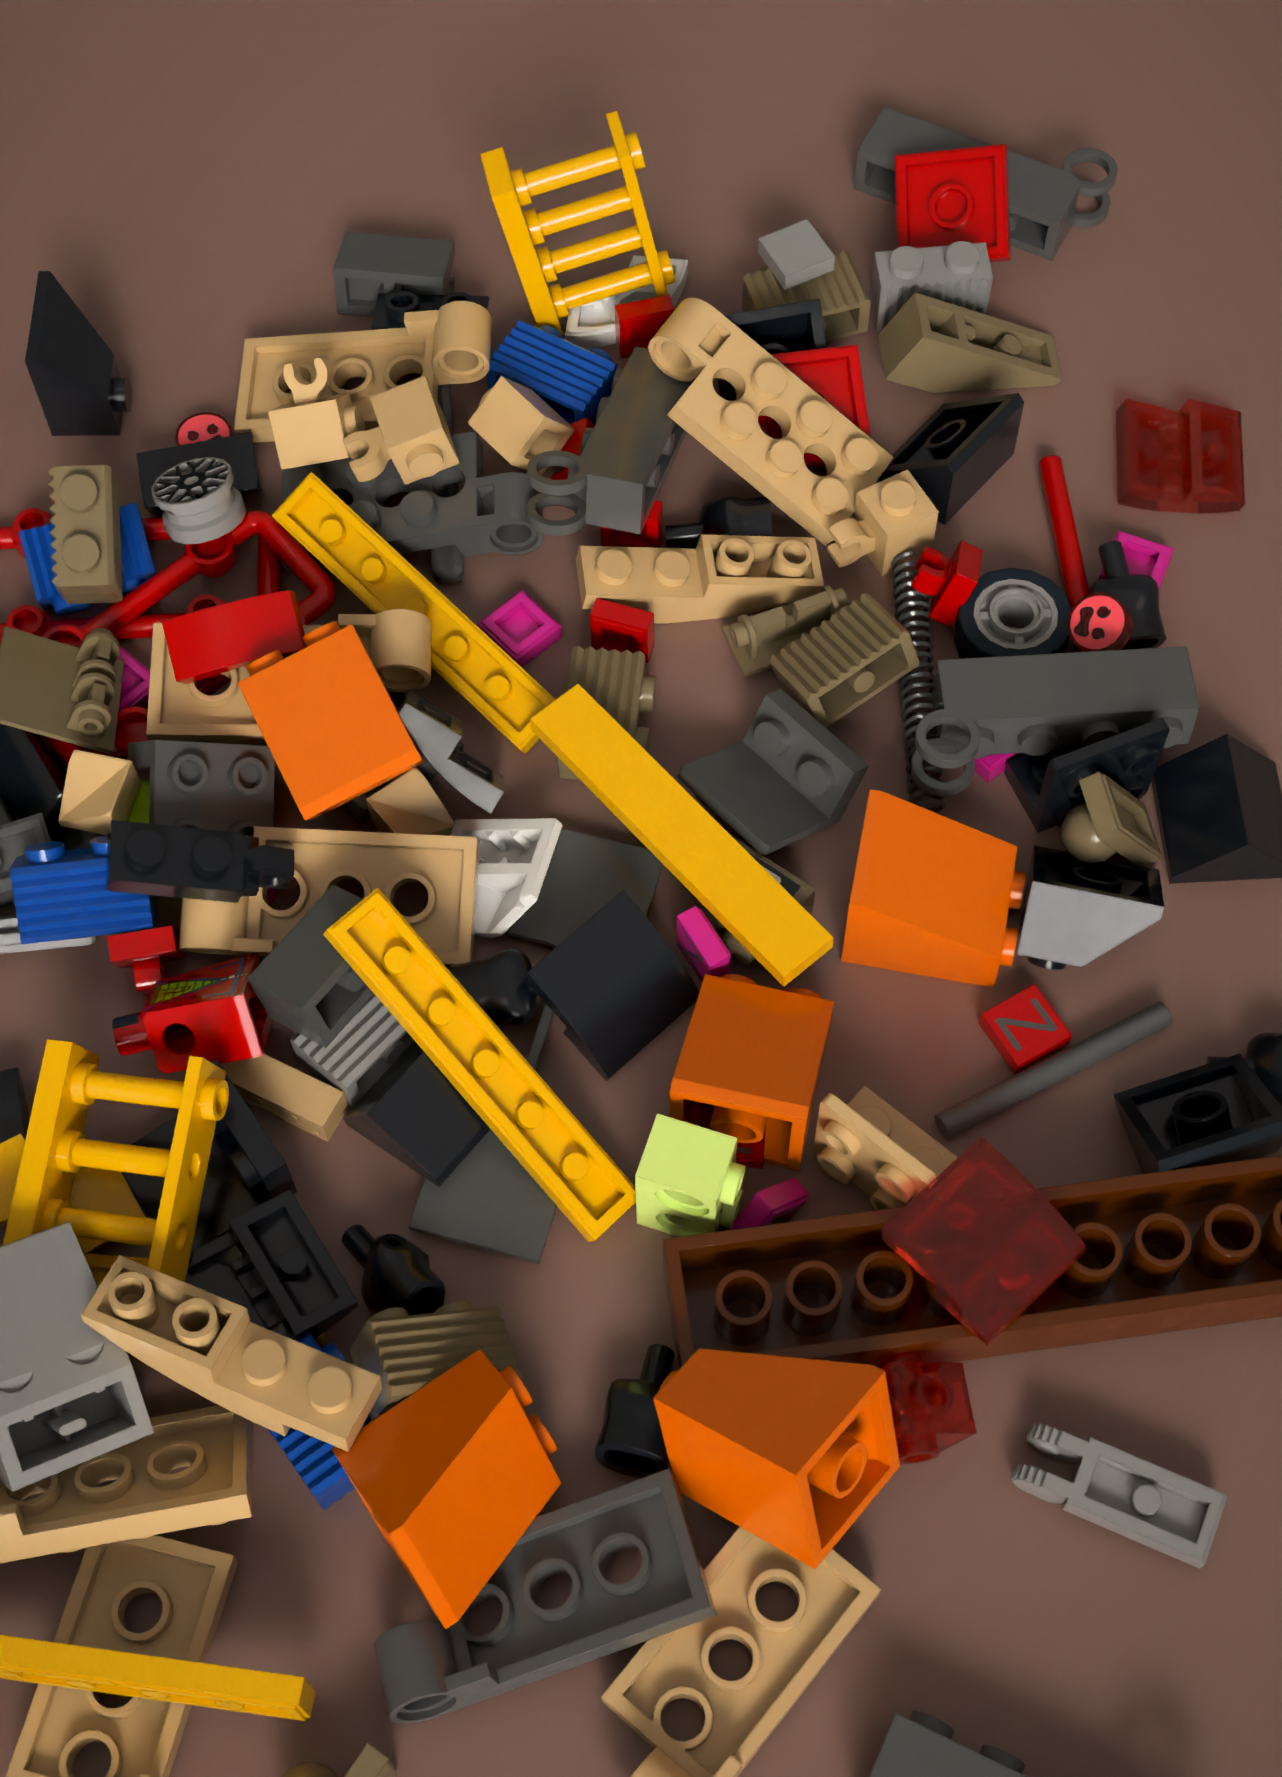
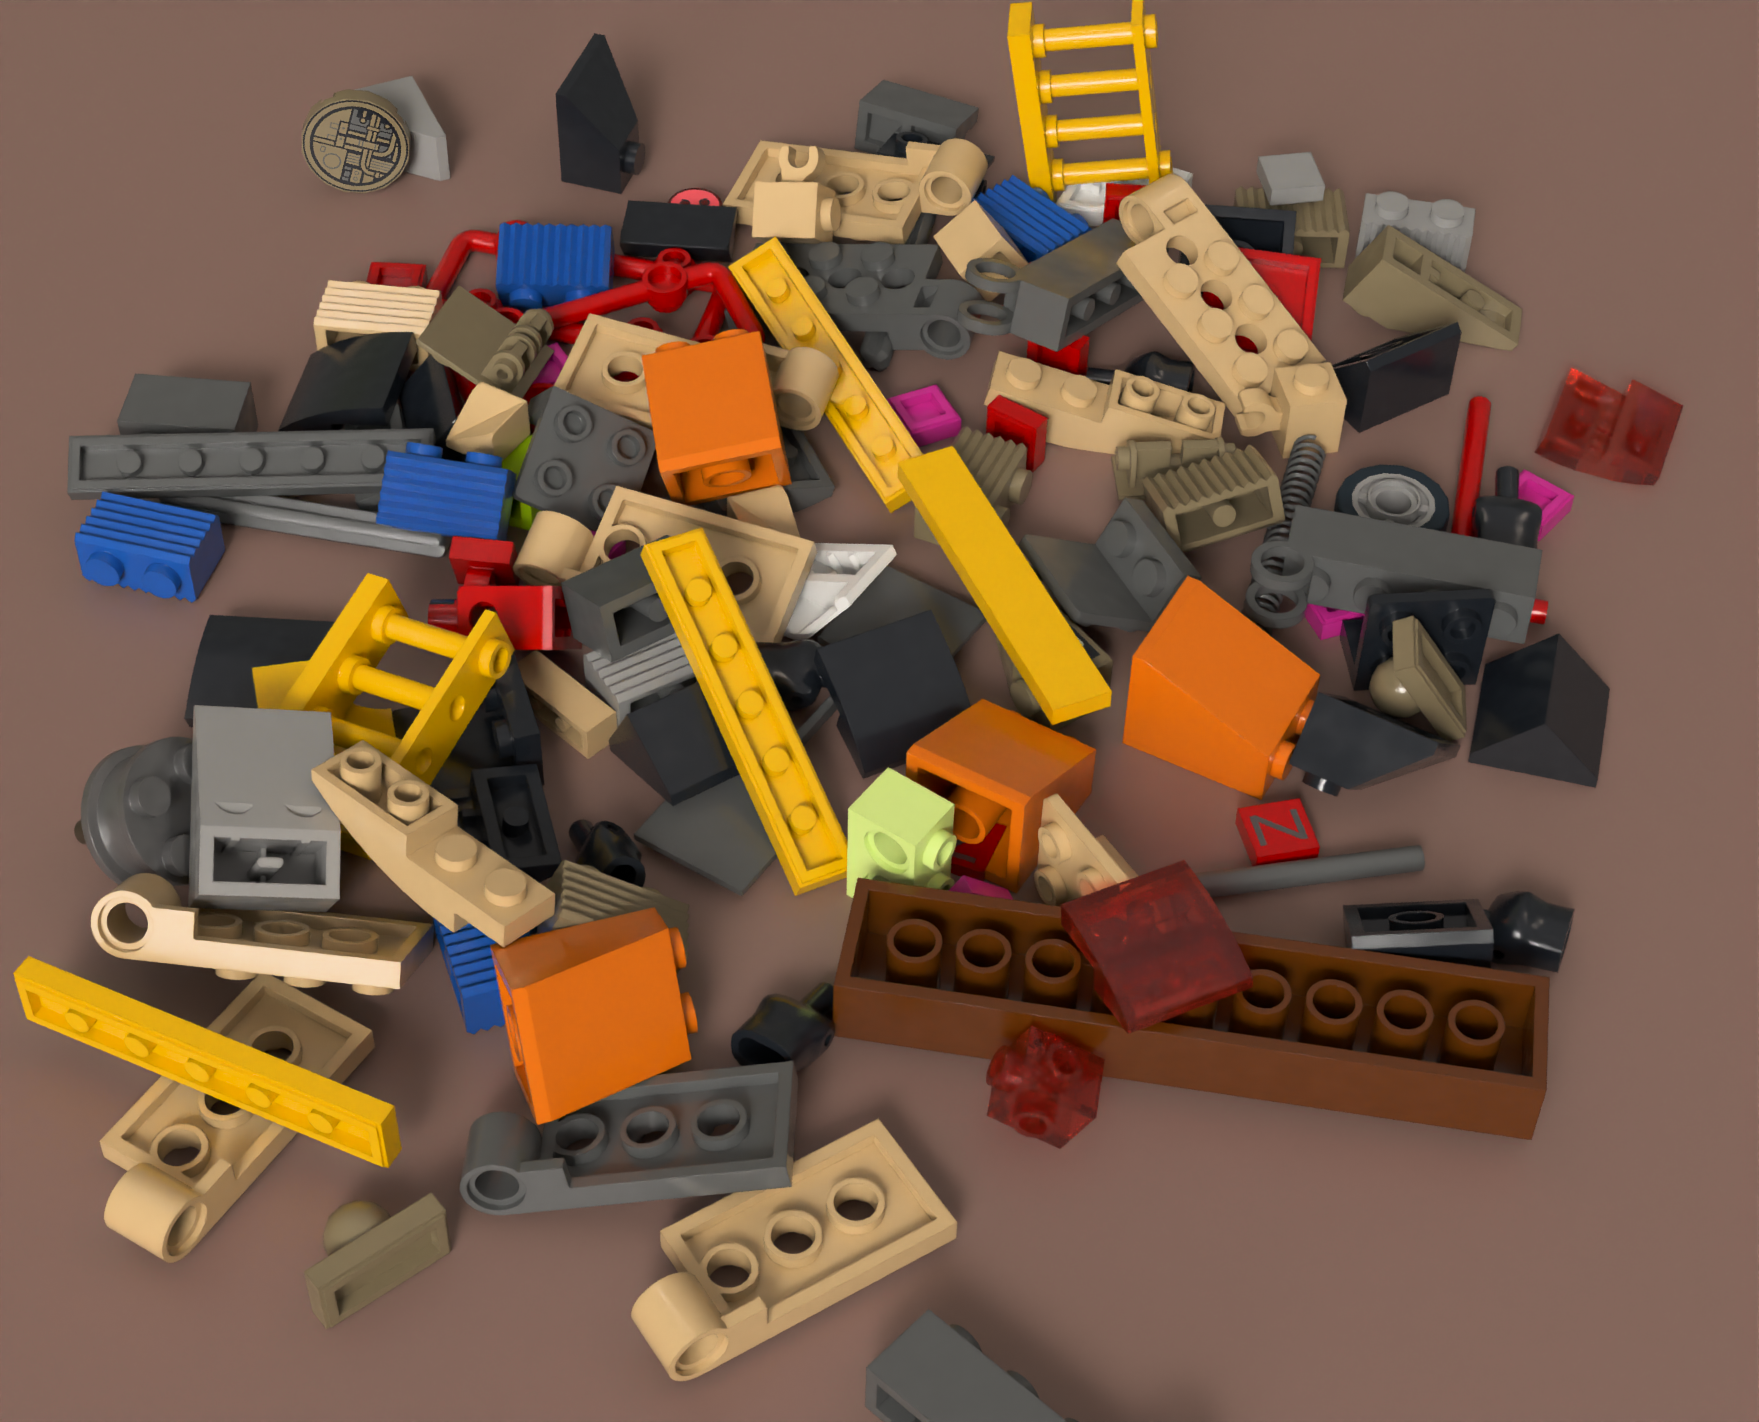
camera: 15 degrees right, 15 degrees down
(86, 534) = (556, 231): dark tan brick -> none
(192, 862) = (551, 488): black hinge -> none
(198, 500) = (667, 238): light grey wheel -> none
(233, 635) = (637, 327): red slope -> none
(409, 433) = (875, 225): tan brick -> none
(436, 737) = (812, 461): slope -> none
(701, 944) = (991, 677): dark pink tile -> none
(779, 1443) = (903, 1056): orange slope -> none
(947, 579) = (1337, 460): red tile -> none
(954, 199) = (1464, 166): red tile -> none
(1039, 194) = (1496, 174): dark grey hinge -> none
(1100, 623) = (1473, 518): tile -> none
(1126, 1495) = (1224, 1219): light grey hinge -> none

